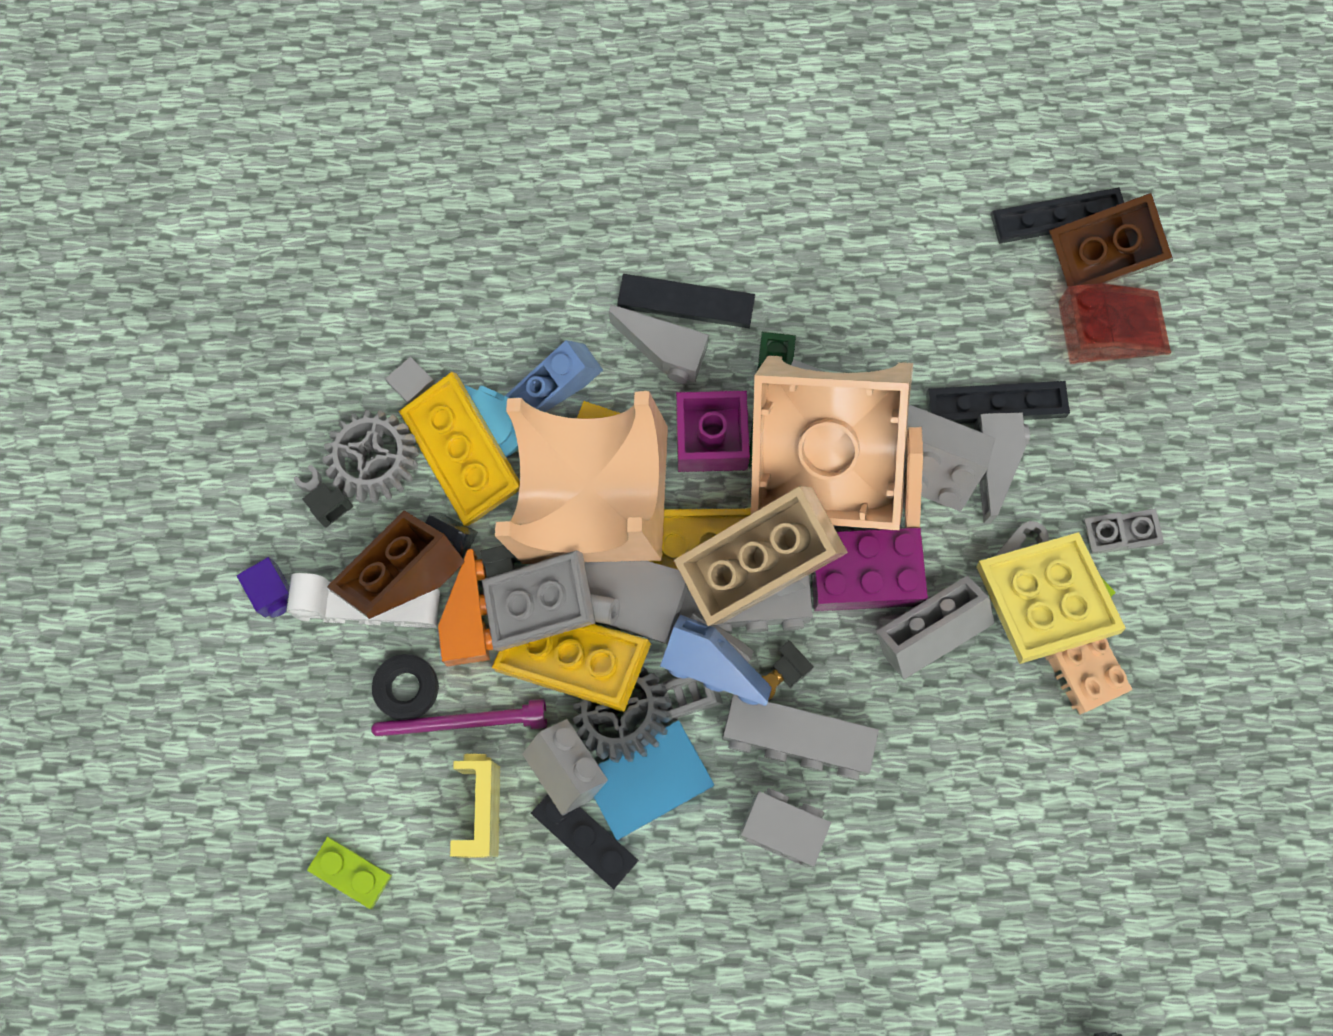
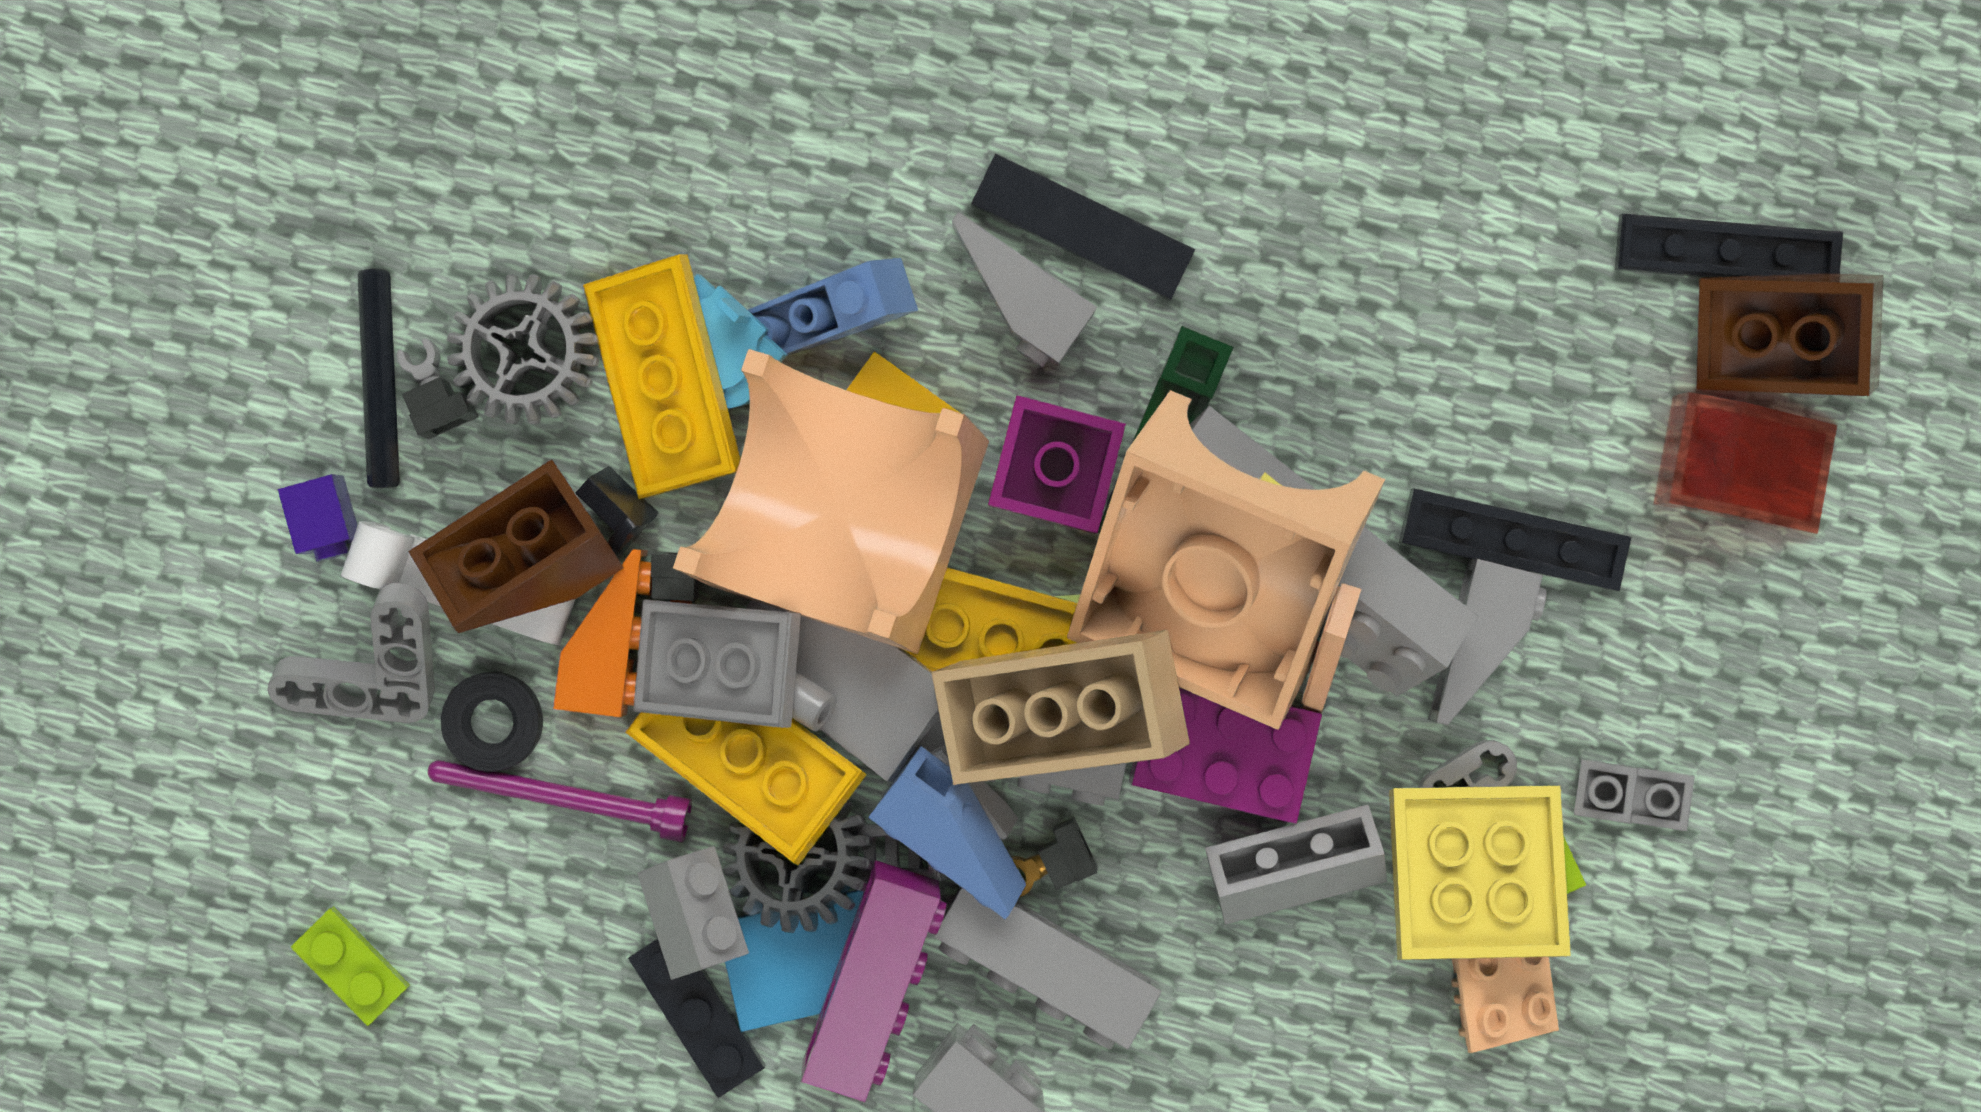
camera: 15 degrees right, 15 degrees up
(286, 500) = (378, 378): none -> black axle
(332, 671) = (388, 673): none -> light grey beam
(409, 380) = (612, 237): light grey tile -> none
(486, 808) = (548, 992): light yellow panel -> none
(692, 778) = (871, 981): none -> brick

